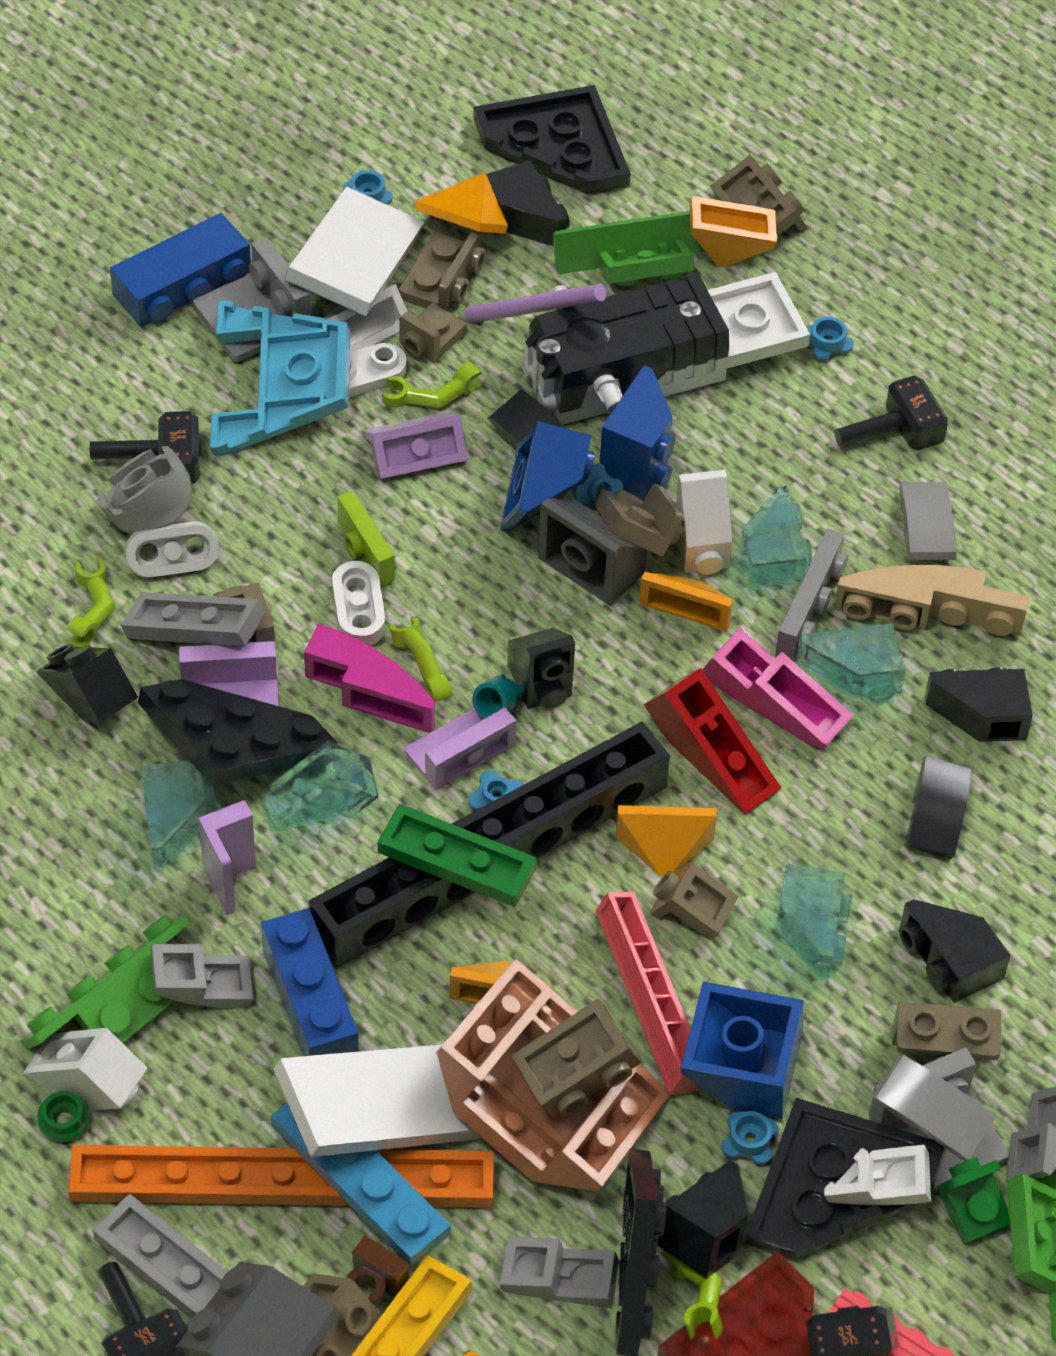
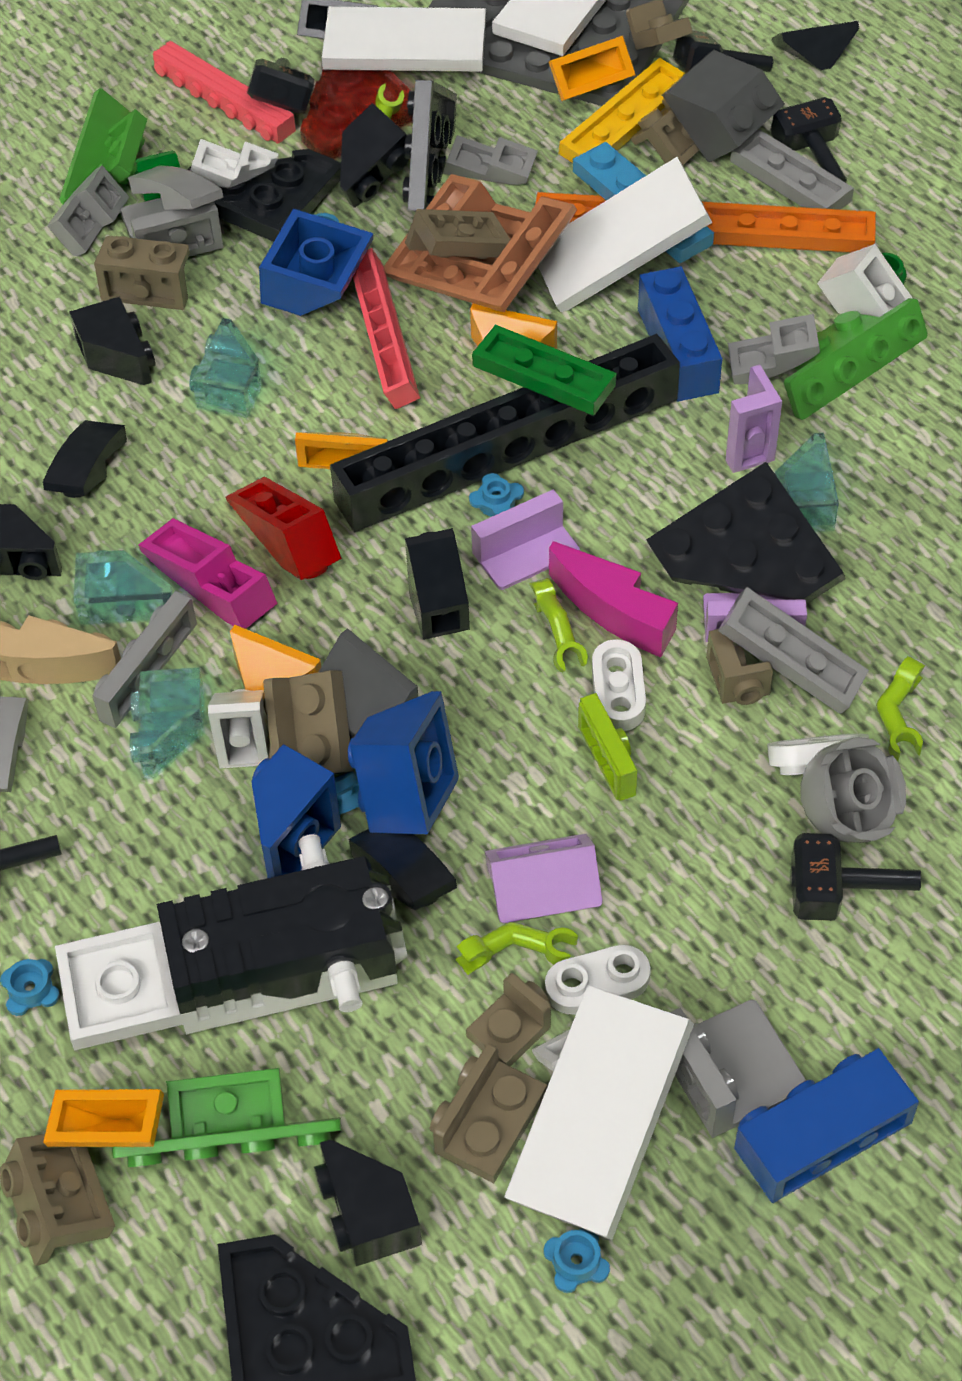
camera: 170 degrees left, 0 degrees up
(88, 681) = (900, 611): black slope -> none
(299, 376) = (674, 953): medium azure wing -> none
(321, 789) = (656, 492): clear light blue slope -> none
(379, 1268) = (633, 150): reddish brown tile -> none
(468, 205) = (451, 1183): light orange slope -> none
(487, 695) = (485, 576): teal hose -> none
(535, 303) = (382, 984): lavender bar -> none
(694, 899) = (333, 392): dark tan bracket -> none

